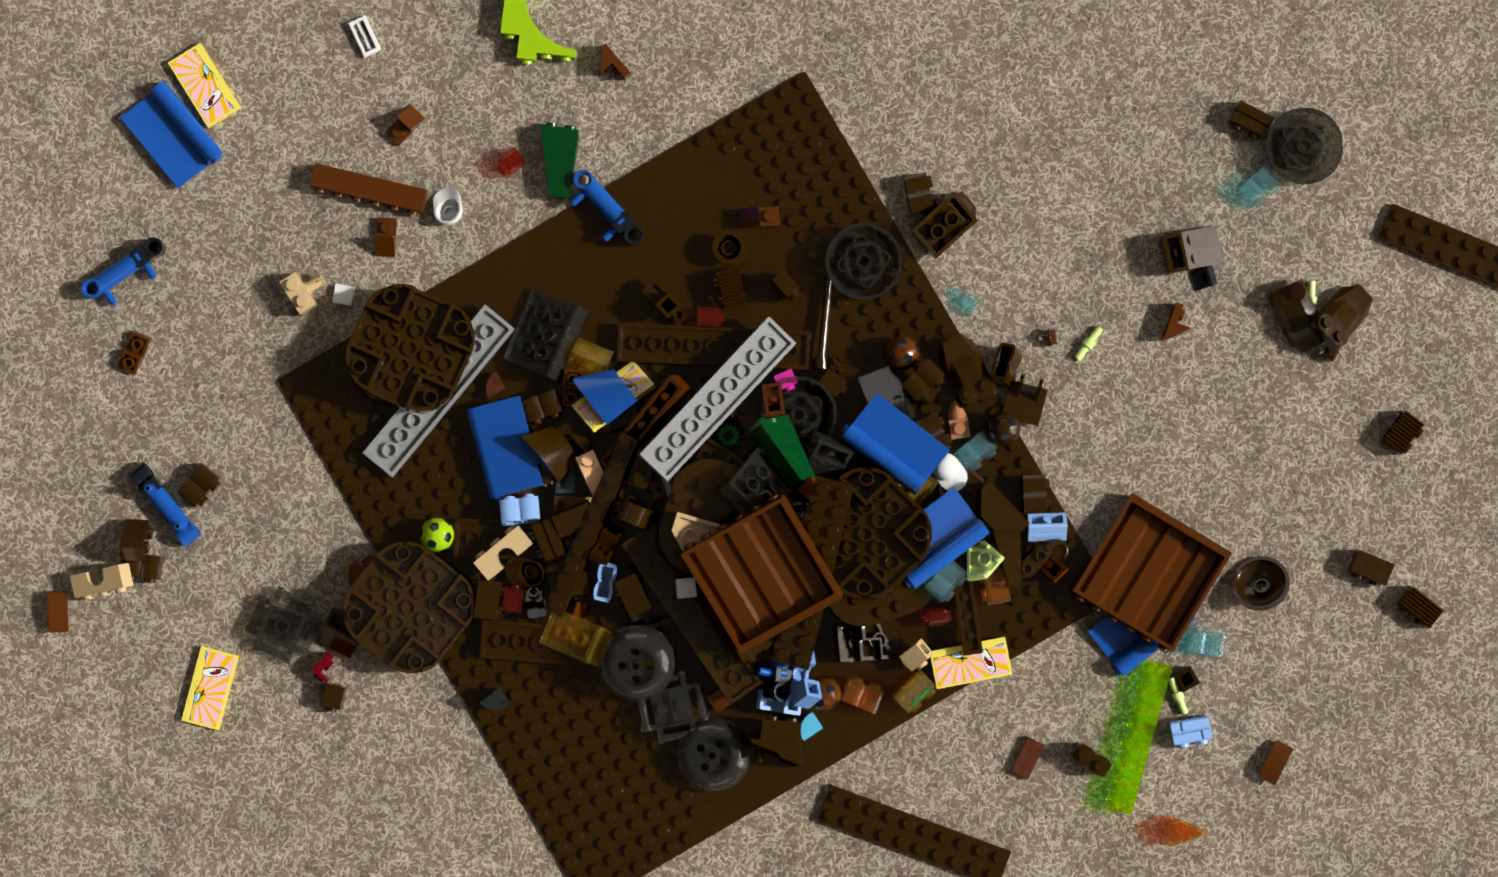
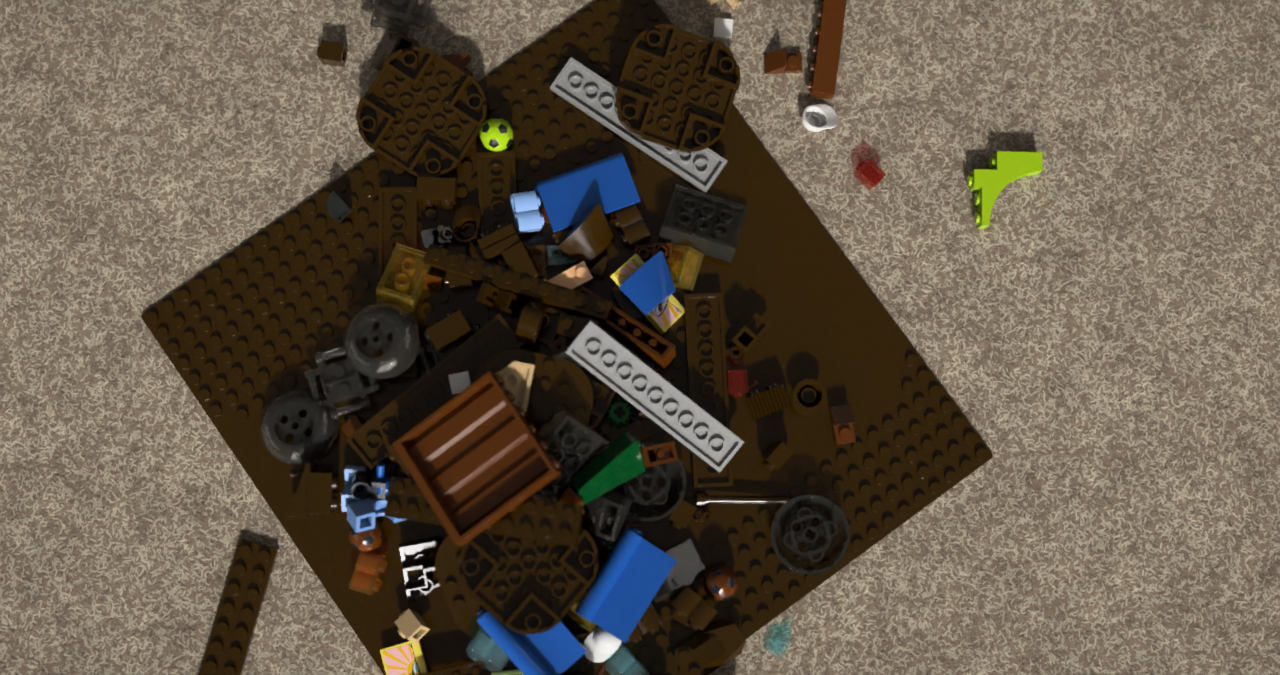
camera: 80 degrees right, 5 degrees down
(325, 663) = (361, 40): dark red bracket -> none
(371, 51) = (961, 33): white tile -> none
(405, 125) = (894, 71): reddish brown slope -> none
(489, 562) = (472, 186): tan arch -> none
(494, 385) = (648, 178): copper tile -> none
(513, 598) = (439, 215): clear red brick -> none
(560, 155) = (879, 221): dark green slope -> none
(604, 587) = (467, 302): light blue brick -> none
(607, 207) = (836, 272): blue piece -> none
(610, 59) = (981, 260): reddish brown slope -> none
(786, 374) = (686, 464): dark pink plate -> none
(810, 726) = (333, 522): medium azure brick -> none
(914, 691) = (374, 626): clear yellow slope -> none
(919, 193) = (884, 584): dark brown brick -> none
(937, 616) = (454, 643): clear red brick -> none
(945, 223) = (856, 614): dark brown slope -> none
(958, 421) = (655, 646): nougat plate -> none

